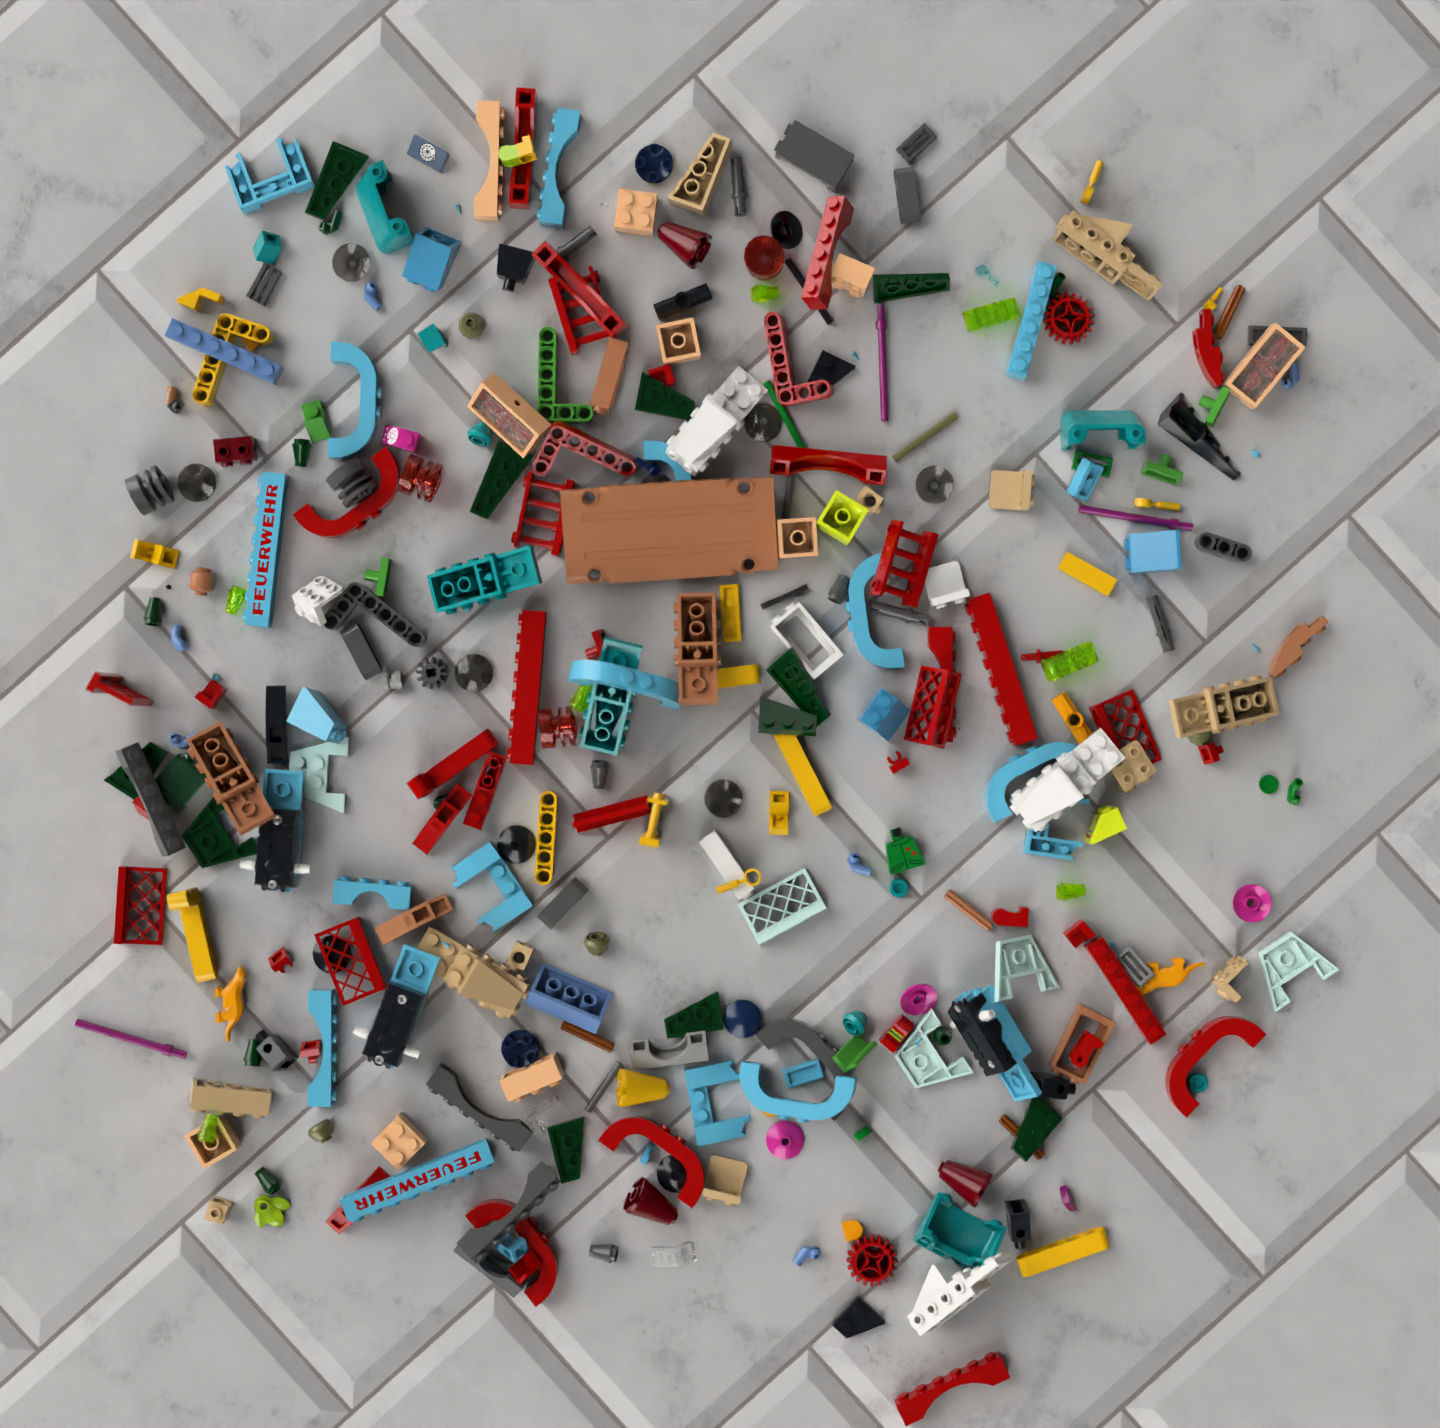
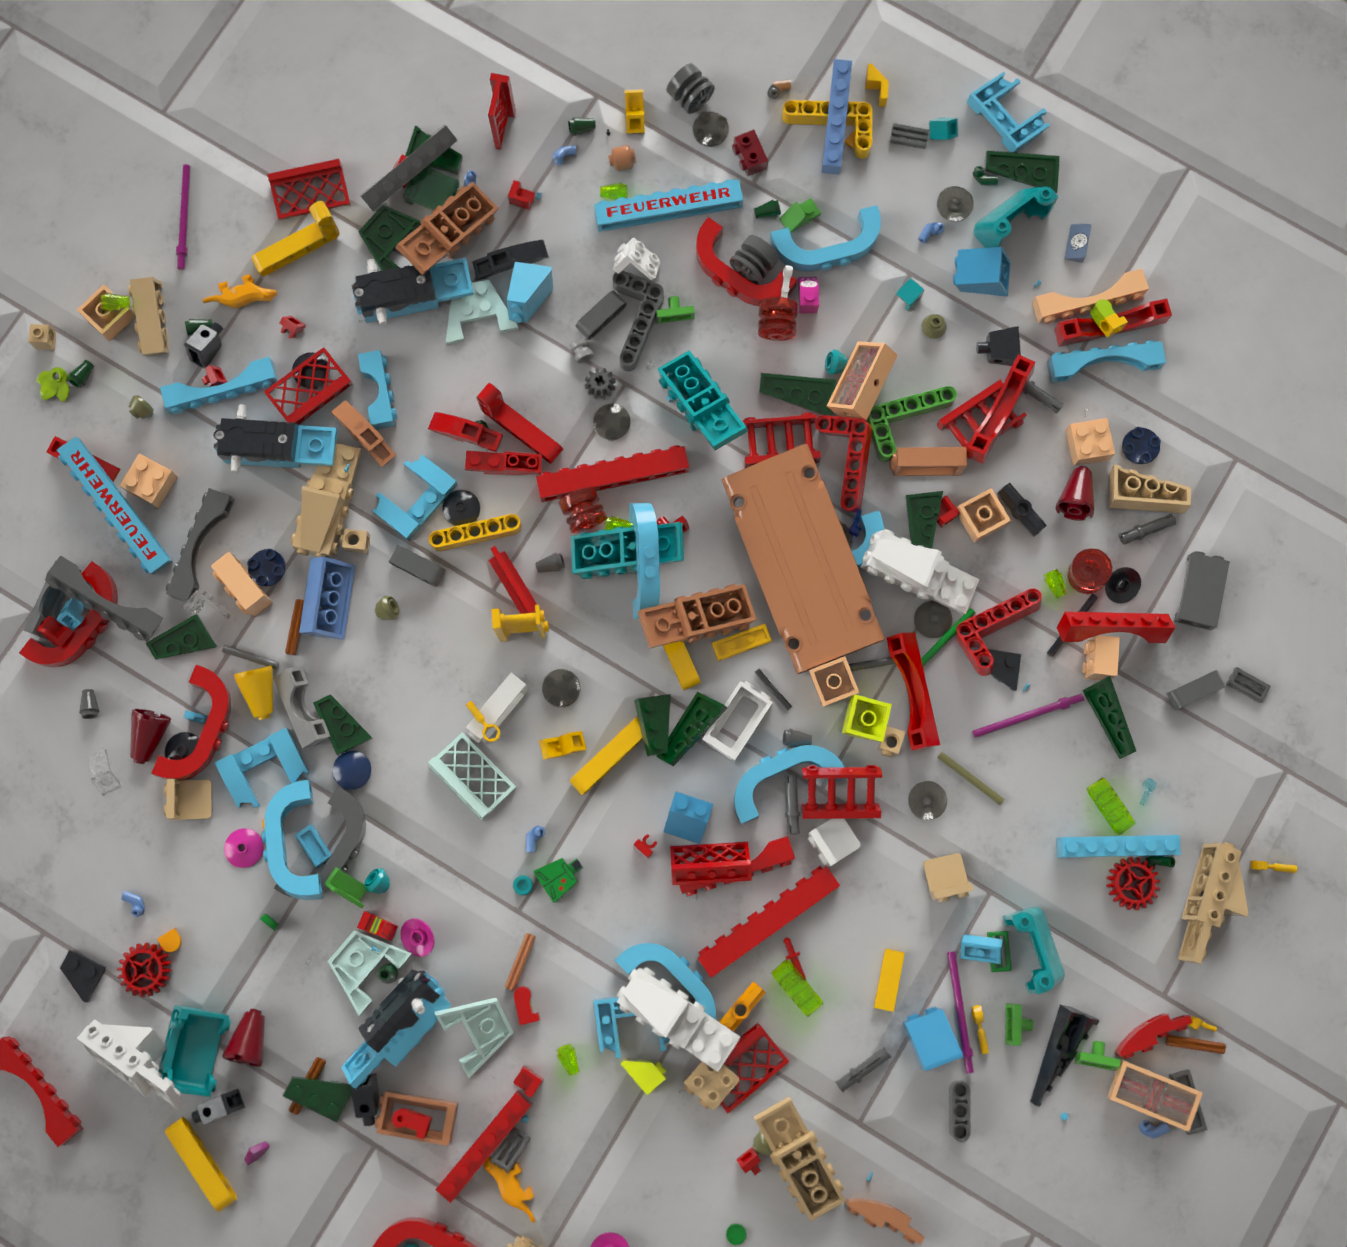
camera: 75 degrees right, 10 degrees down
(377, 454) = (787, 273): none -> white piece

